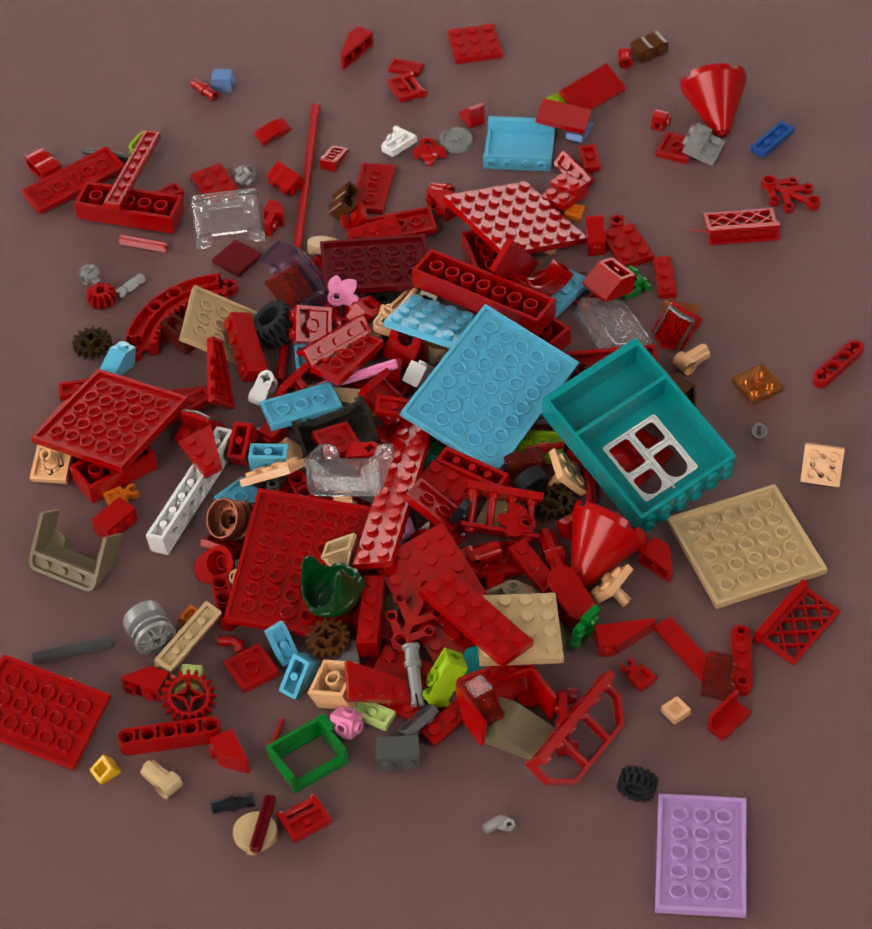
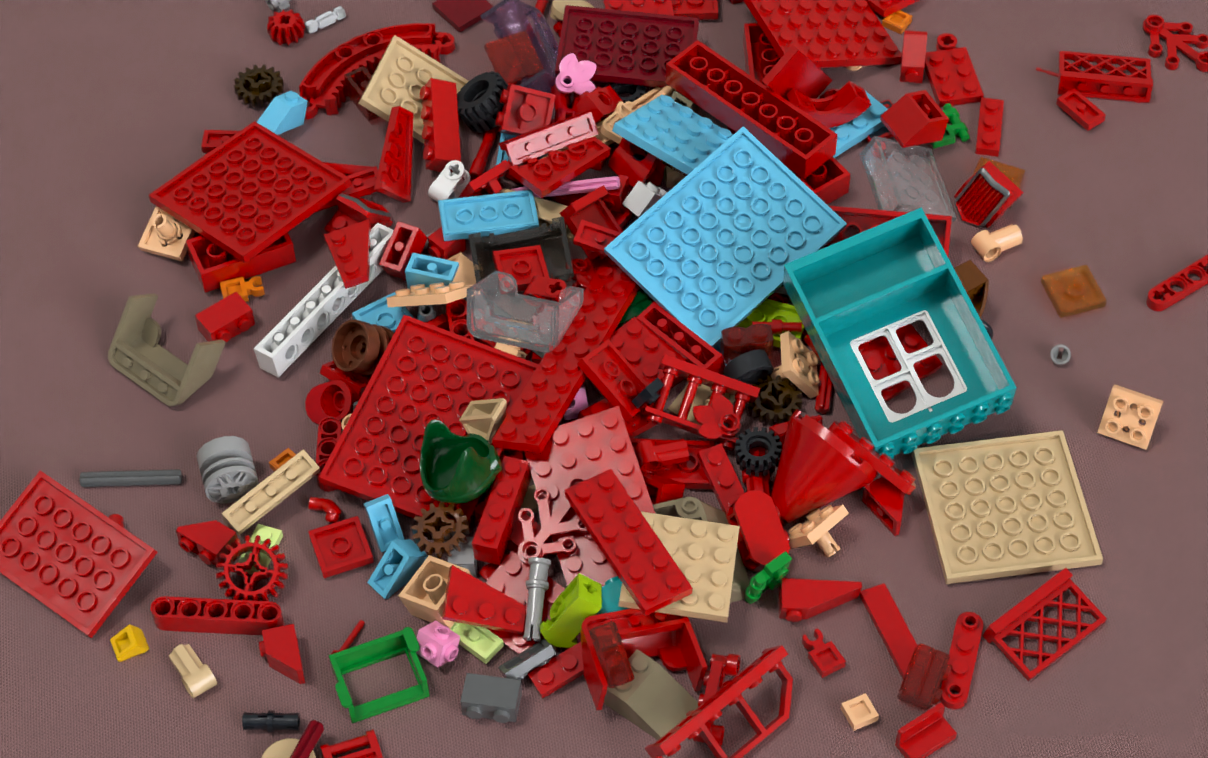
camera: 10 degrees right, 5 degrees up
(553, 530) = (758, 463): none -> black tyre
(649, 528) = (881, 463): none -> red plate
(730, 252) = (1081, 109): none -> red plate

